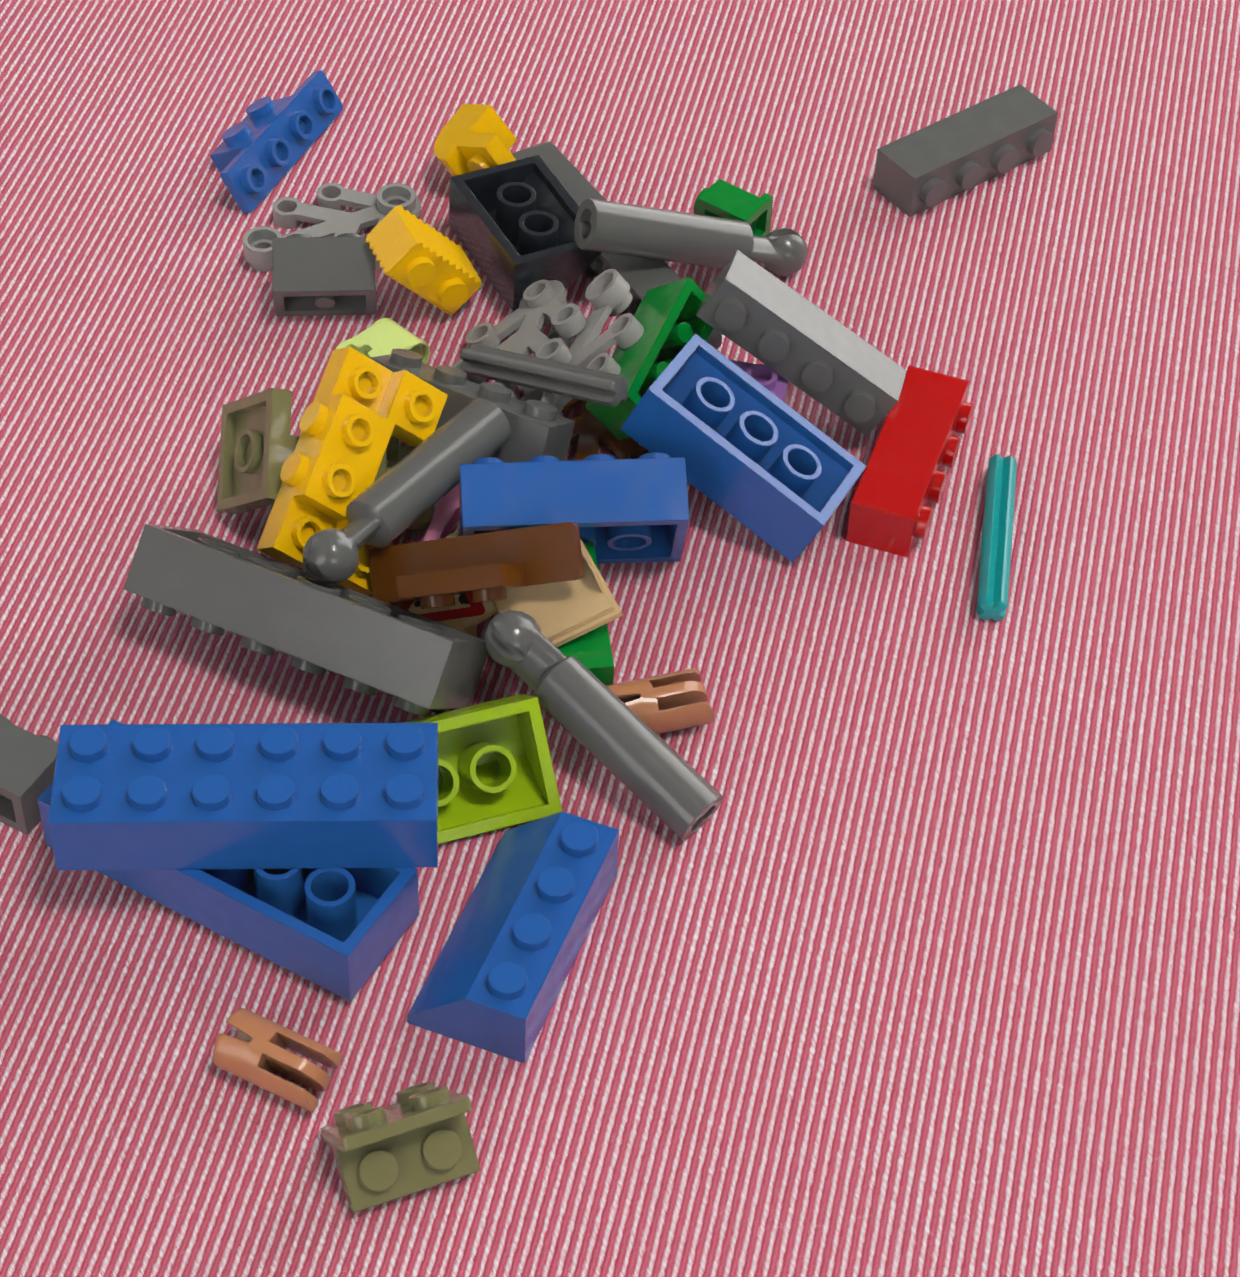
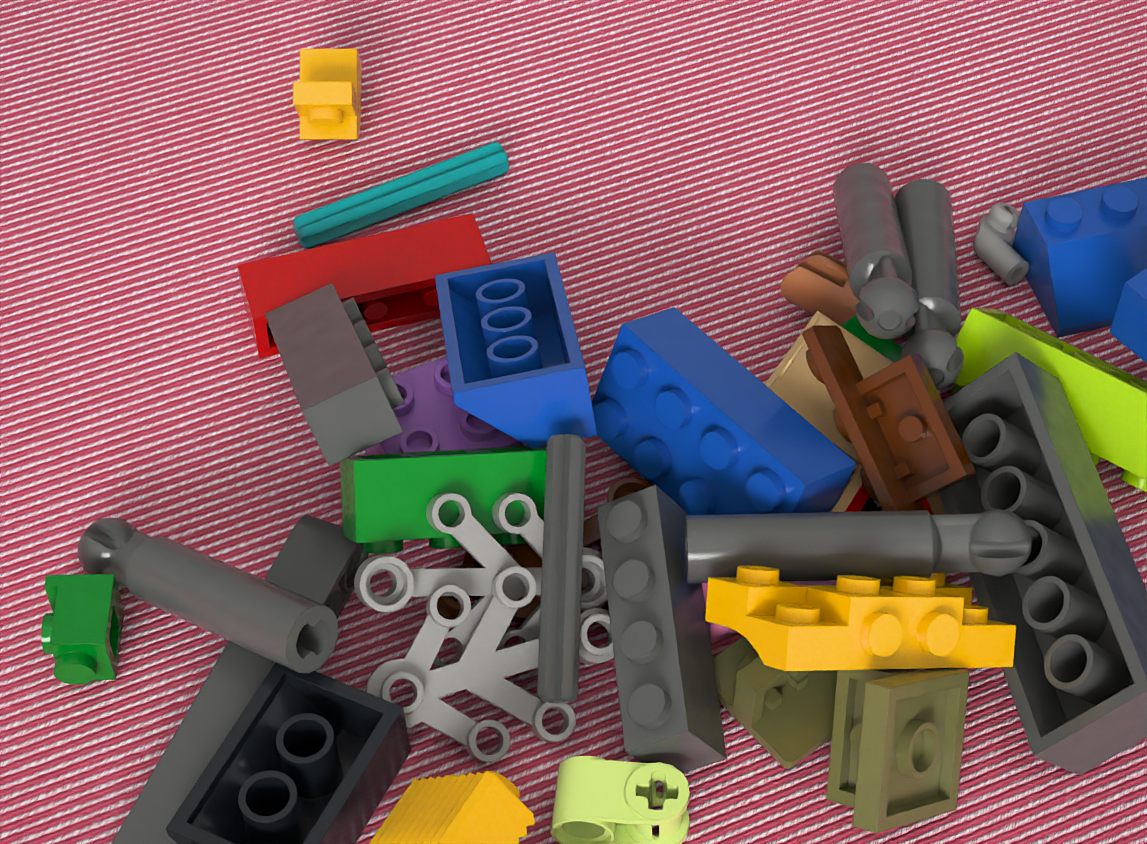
camera: 125 degrees left, 5 degrees up
(636, 857) = (995, 241): none -> light grey arm
(654, 690) = (875, 251): none -> dark grey piece
(1128, 534) = (329, 94): none -> yellow brick

